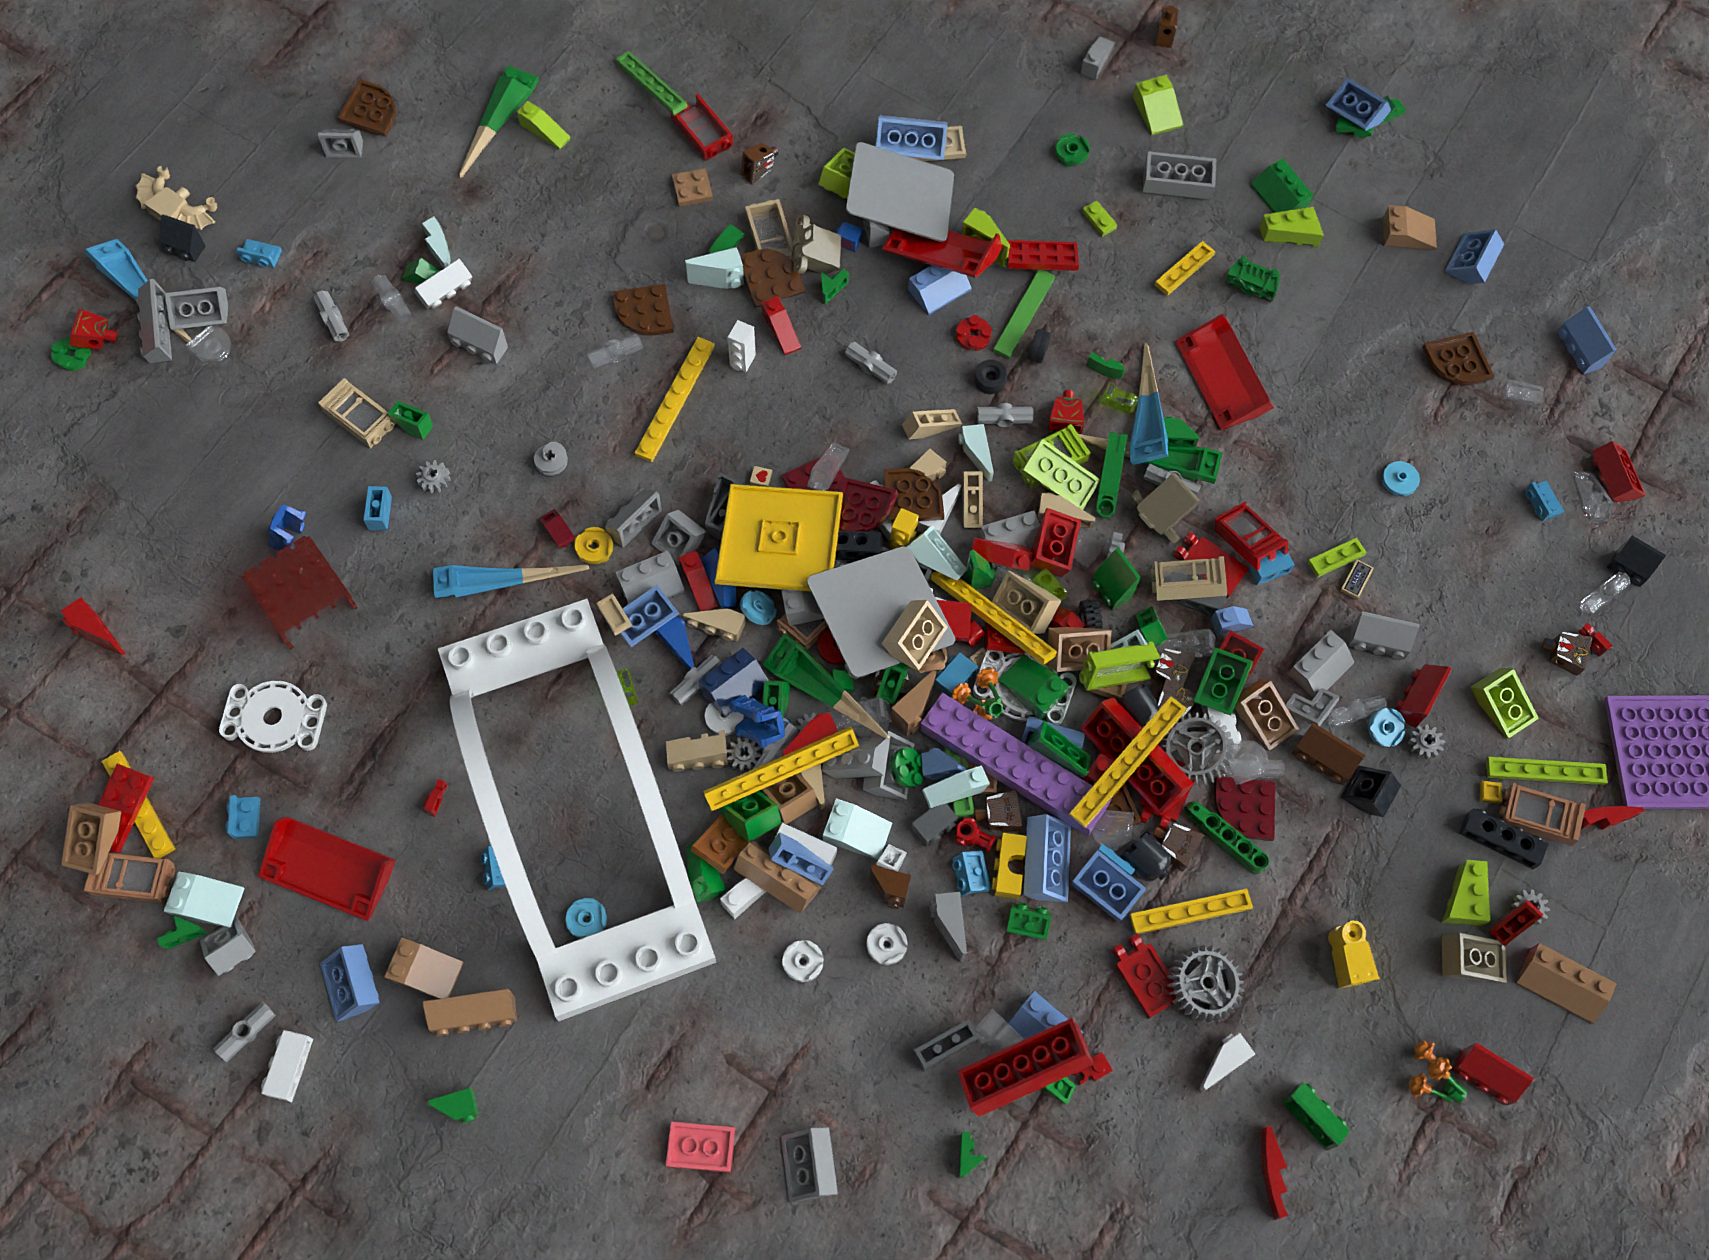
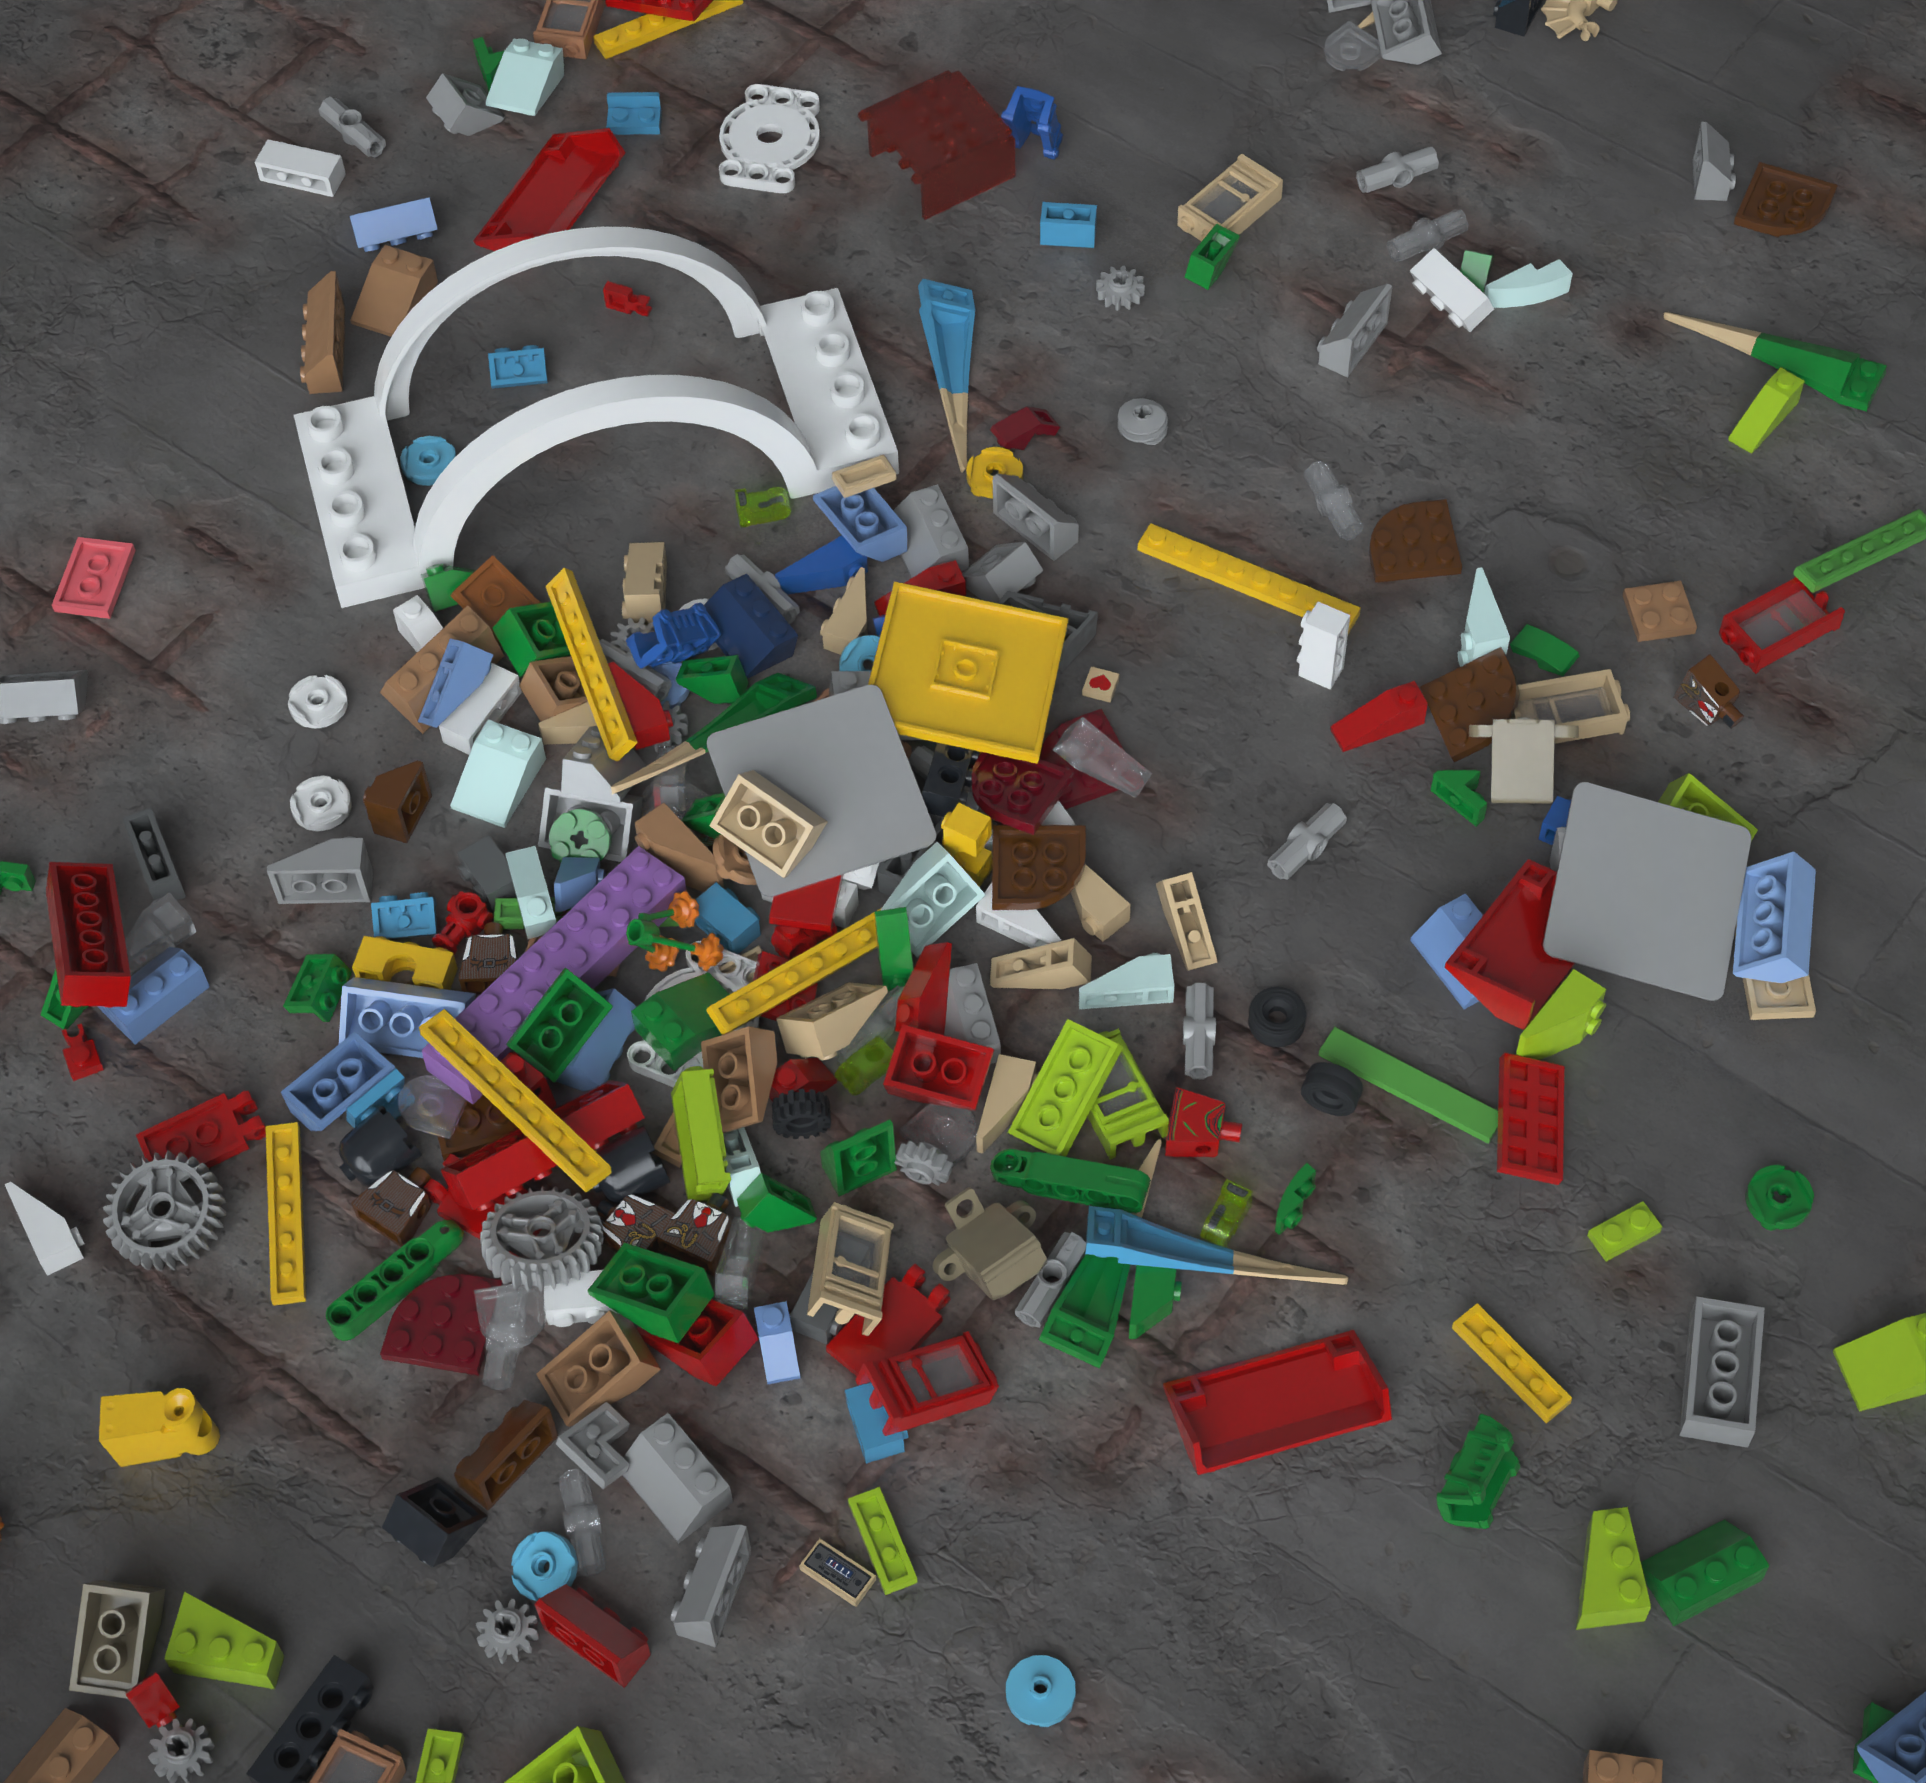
camera: 100 degrees right, 10 degrees down
(259, 253) = (1508, 90): dark azure bracket -> none
(458, 1105) = (209, 329): green slope -> none
(891, 858) = (439, 812): white slope -> none
(977, 325) = (1369, 985): red plate -> none
(1490, 792) = (403, 1733): yellow tile -> none

